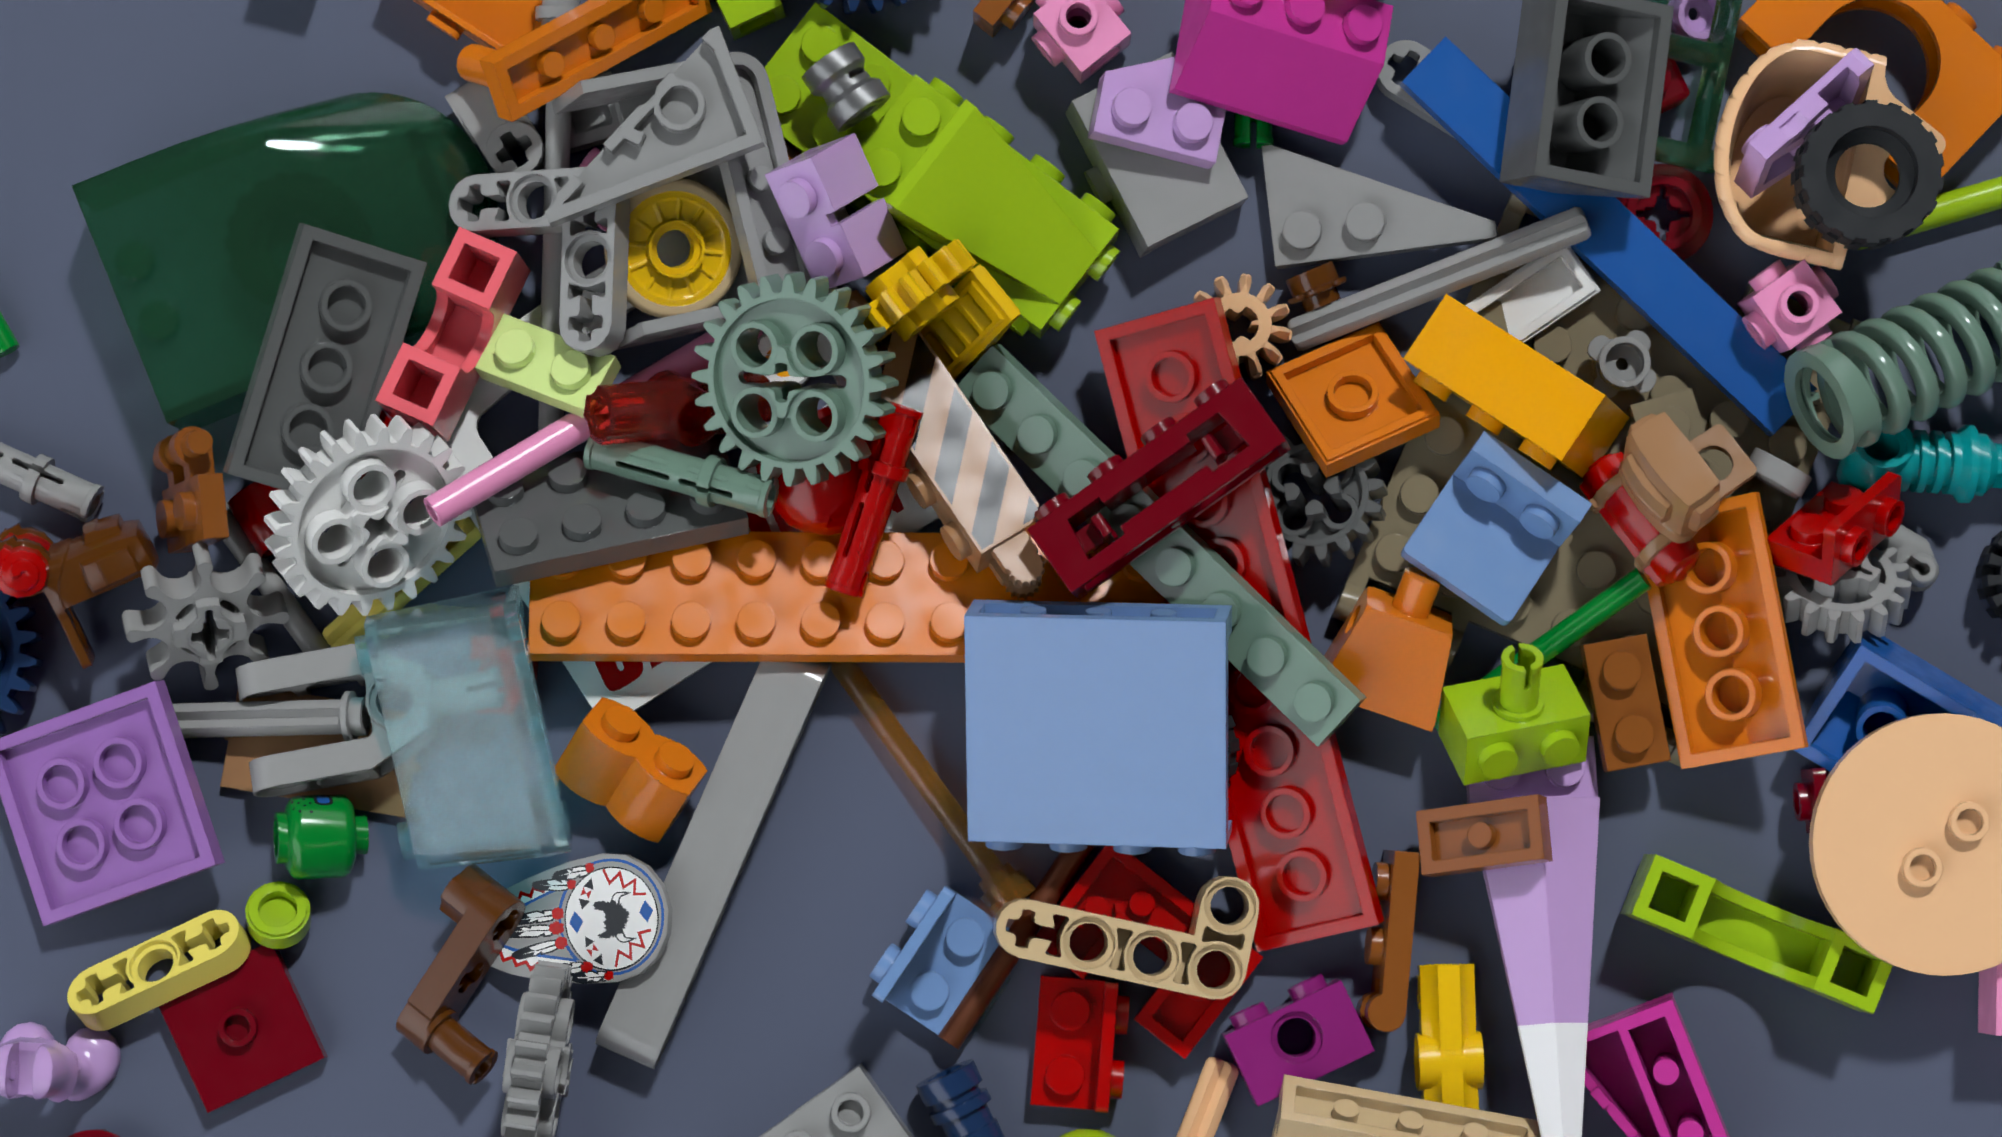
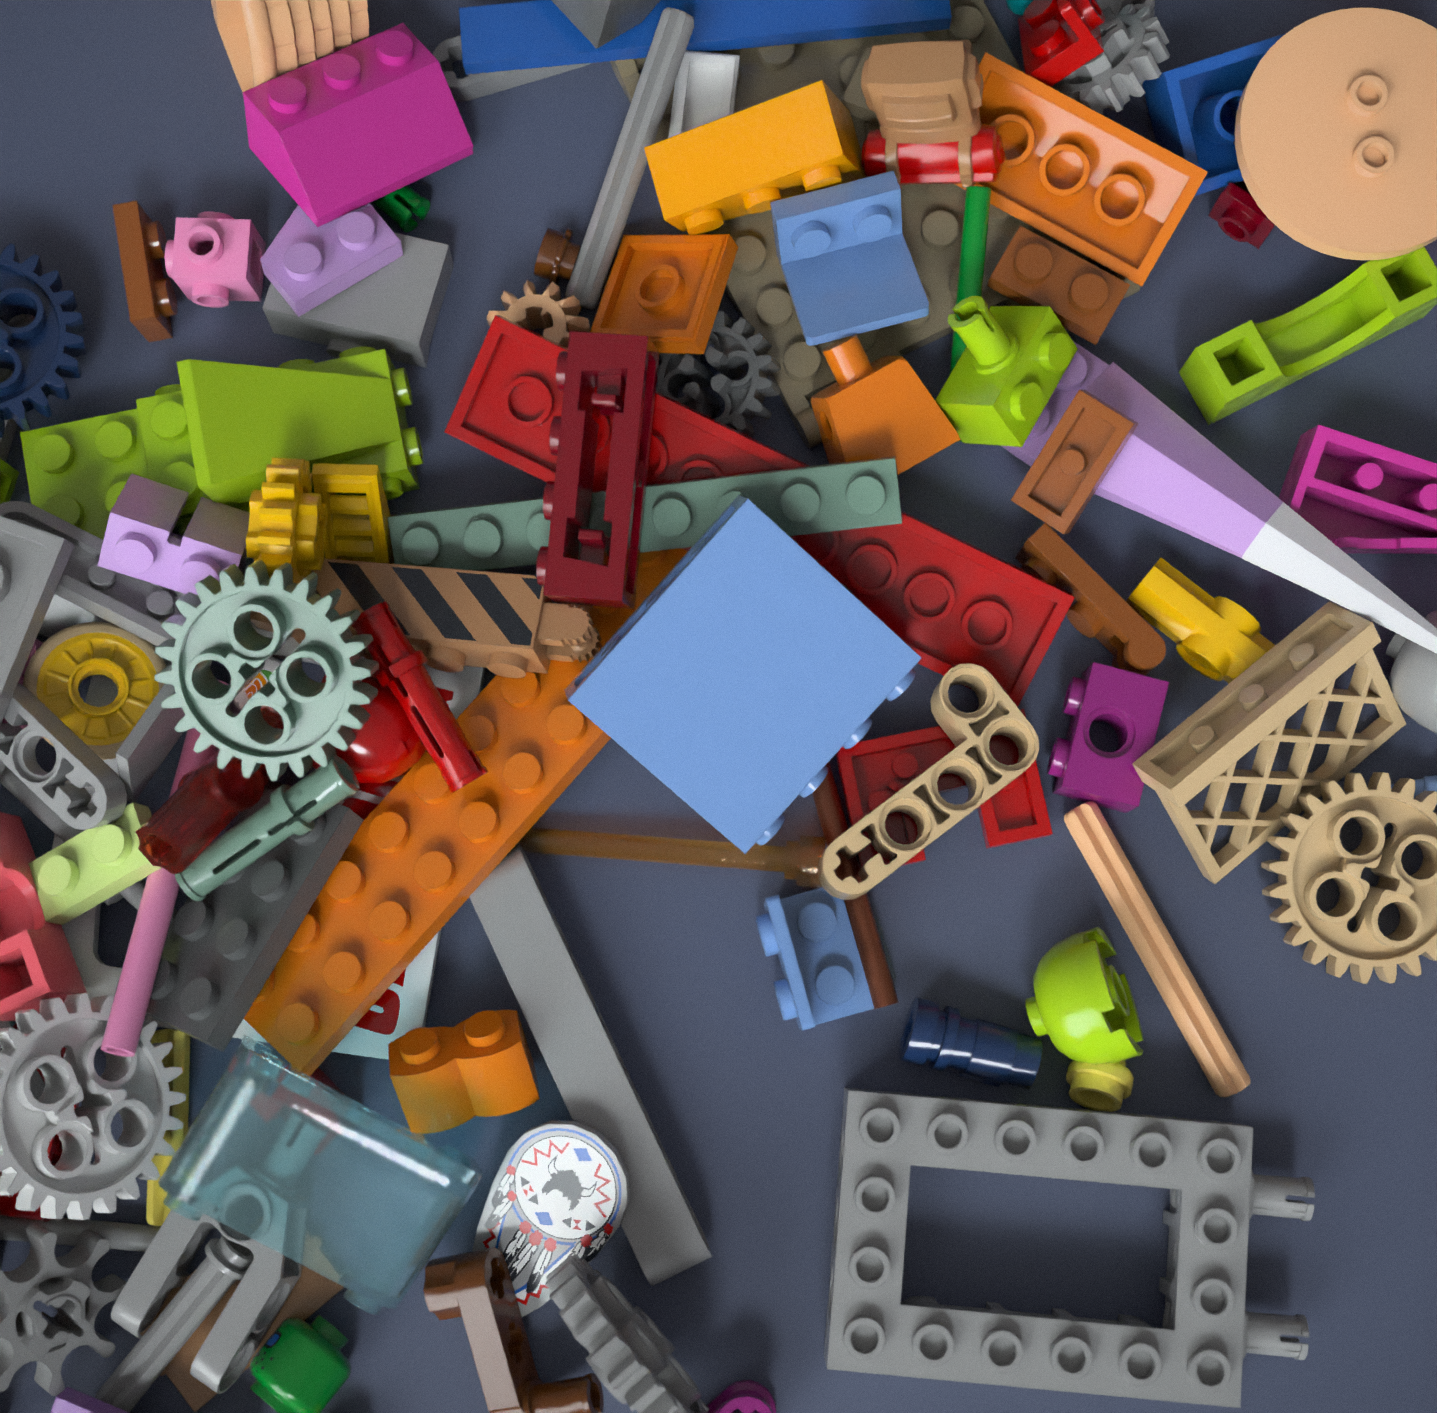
camera: 45 degrees left, 5 degrees down
(846, 86) = (95, 454): flat silver wheel -> none
(1077, 1043) = (972, 905): red bracket -> none
(1342, 216) = (531, 187): light grey wing -> none
(1631, 348) = (804, 65): light grey plate -> none
(1779, 474) = (987, 33): light grey tile -> none

